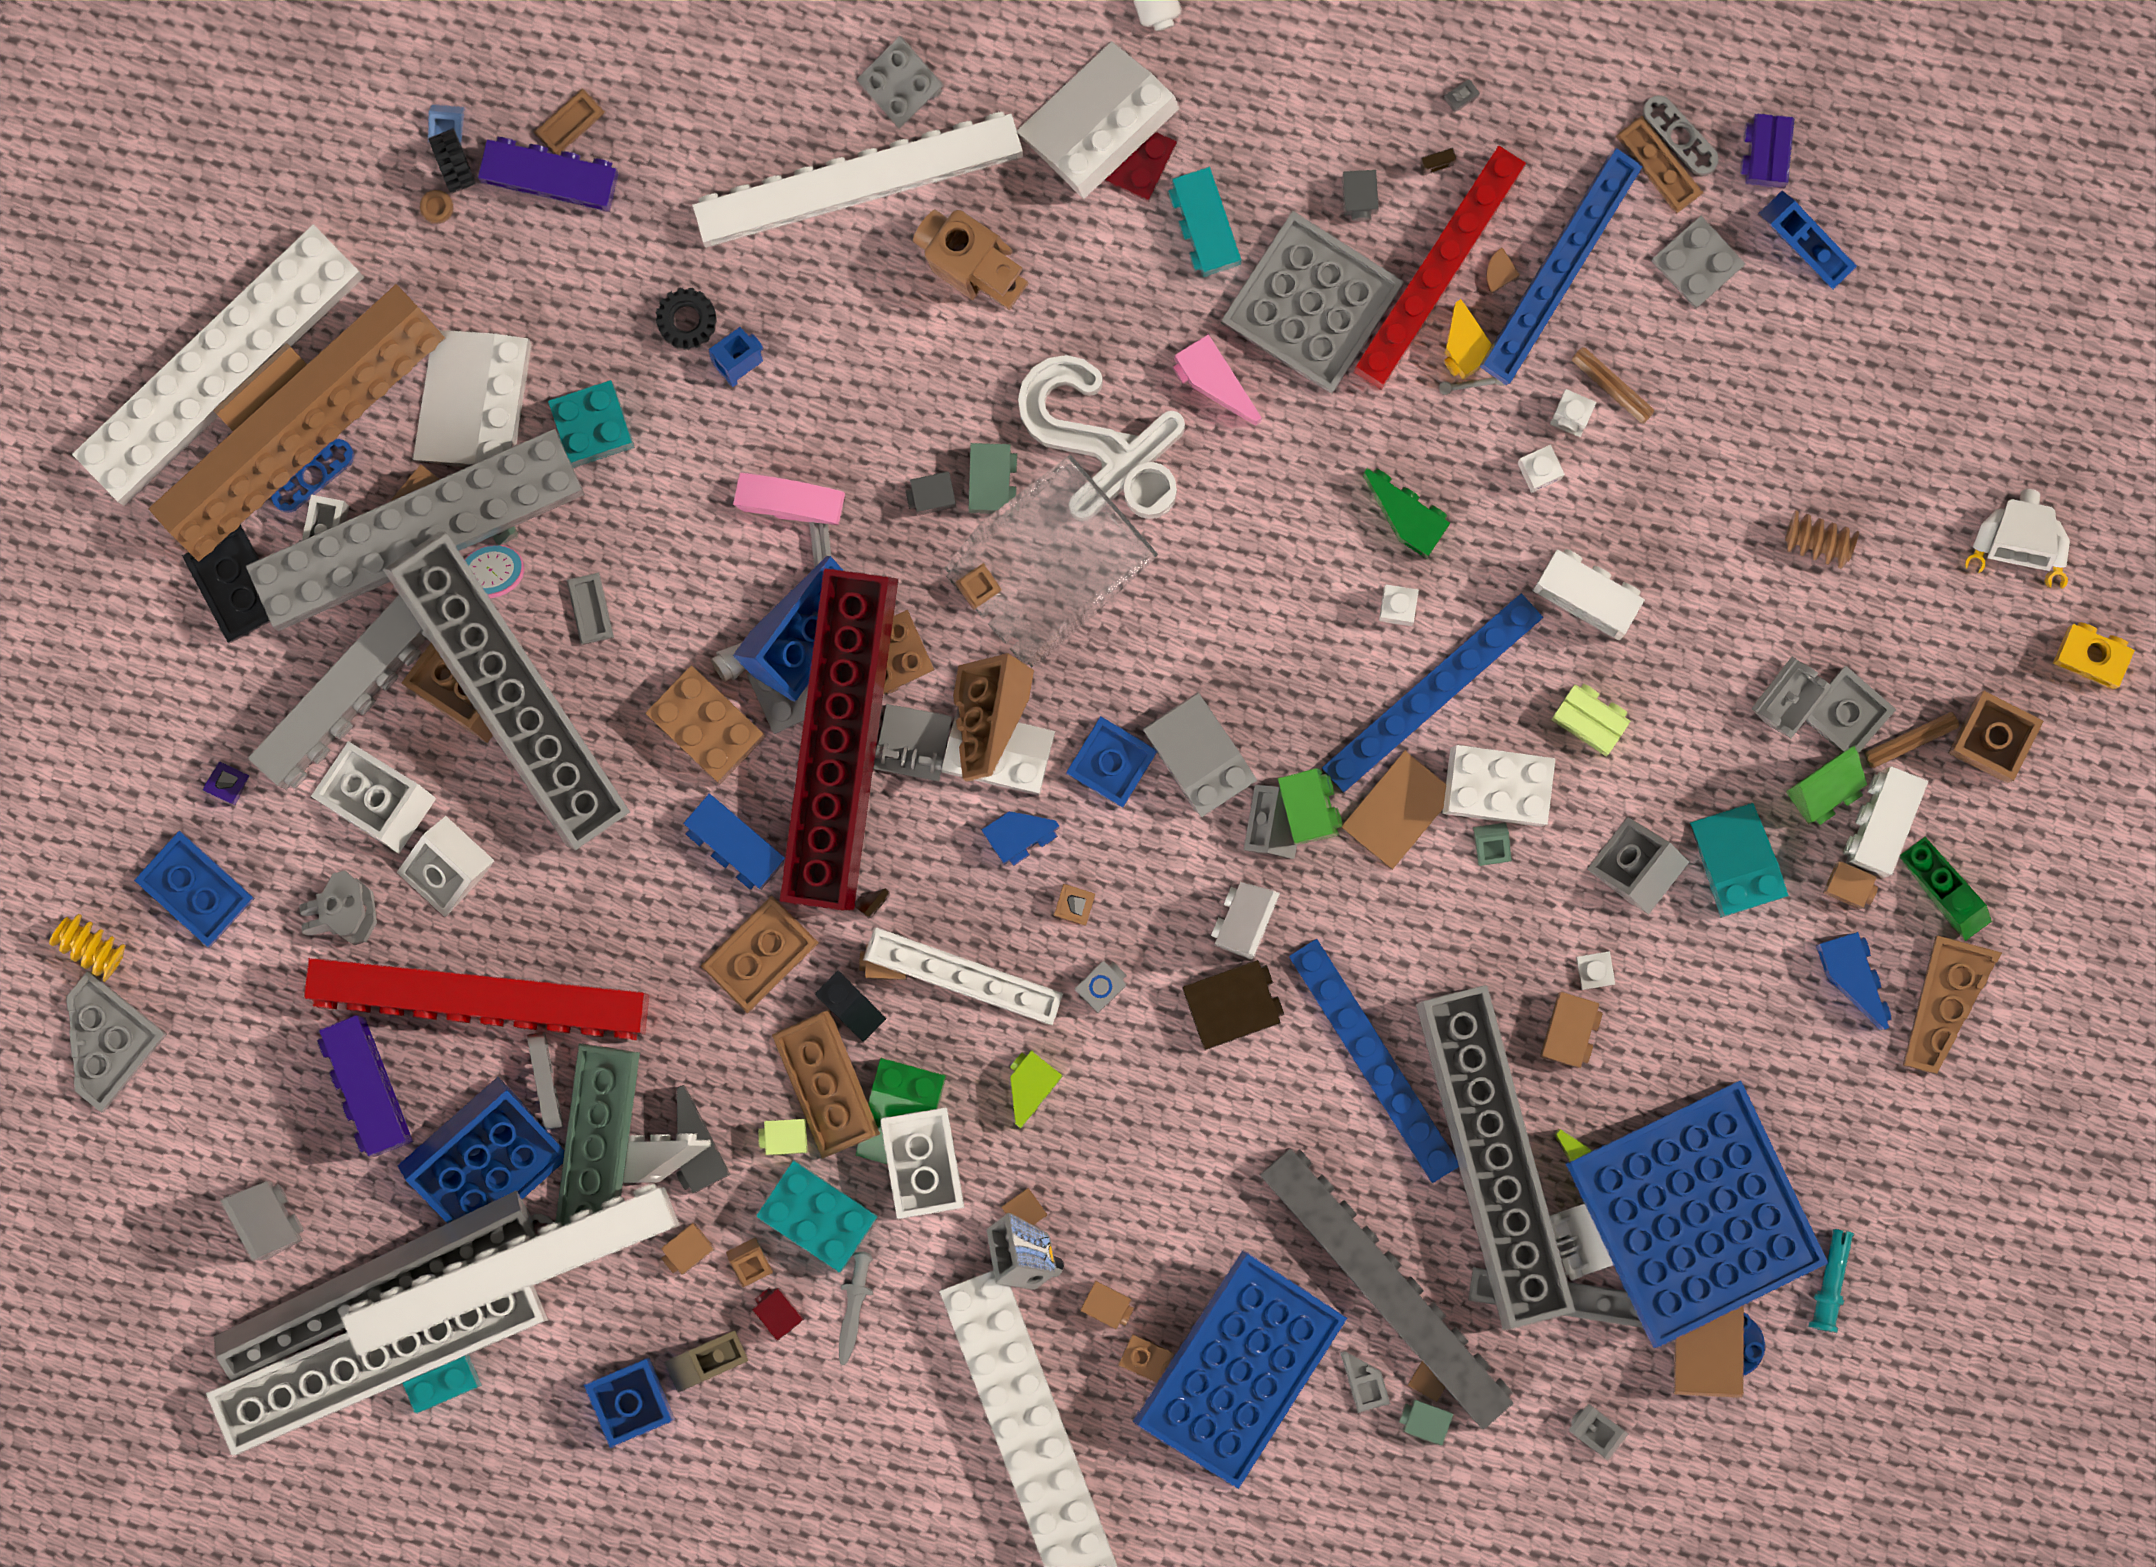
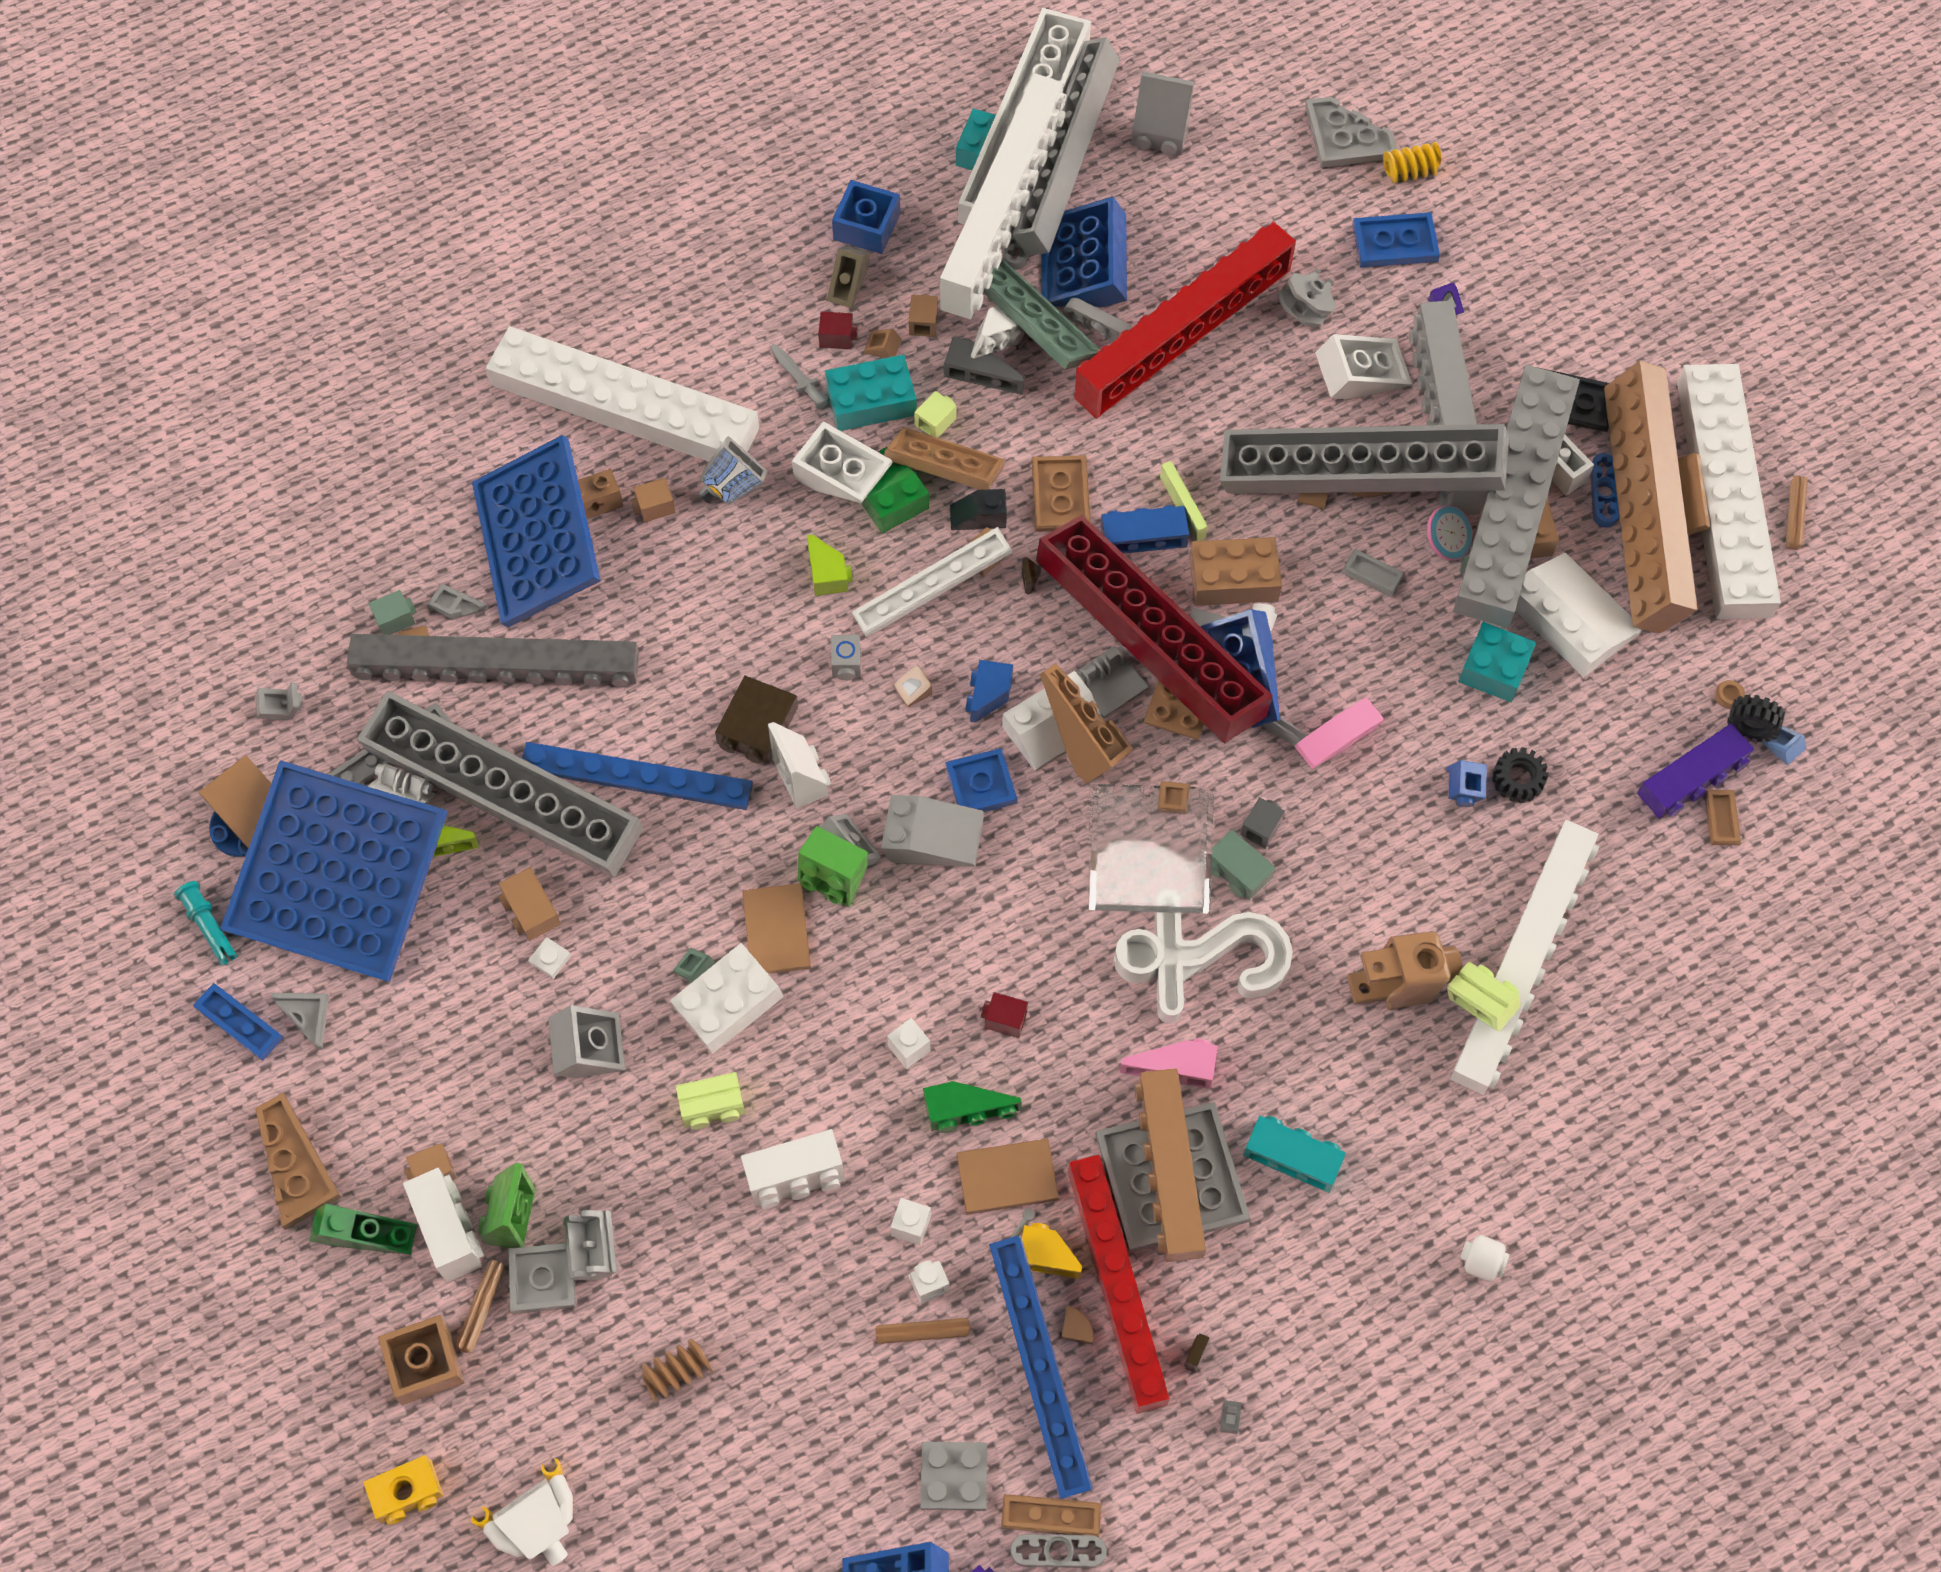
camera: 130 degrees right, 20 degrees down
(182, 290) = (1796, 512): none -> medium nougat axle
(365, 1086) = (1187, 224): dark purple brick -> none
(445, 866) = (1284, 372): white slope -> none
(672, 833) = (1181, 497): none -> yellowish green tile
(900, 82) = (1574, 1042): light grey hinge -> none
(939, 175) = (1484, 995): none -> yellowish green brick
(1025, 1207) = (757, 507): medium nougat tile -> none
(1098, 119) = (1433, 1144): white slope -> none
(1144, 167) = (1385, 1149): dark red plate -> none
(1301, 552) = (1005, 1014): none -> dark red brick
(1310, 304) = (1171, 1165): none -> medium nougat brick
(1360, 194) = (1220, 1276): dark grey brick -> none
(1431, 431) = (1007, 1176): none -> medium nougat tile
(1432, 692) = (830, 1019): blue plate -> none
(1738, 860) = (521, 1110): teal slope -> none
(1824, 1121) = (307, 1012): none -> light grey tile
(1849, 970) = (377, 1113): blue slope -> none
(1884, 1166) = (238, 1021): none -> blue plate

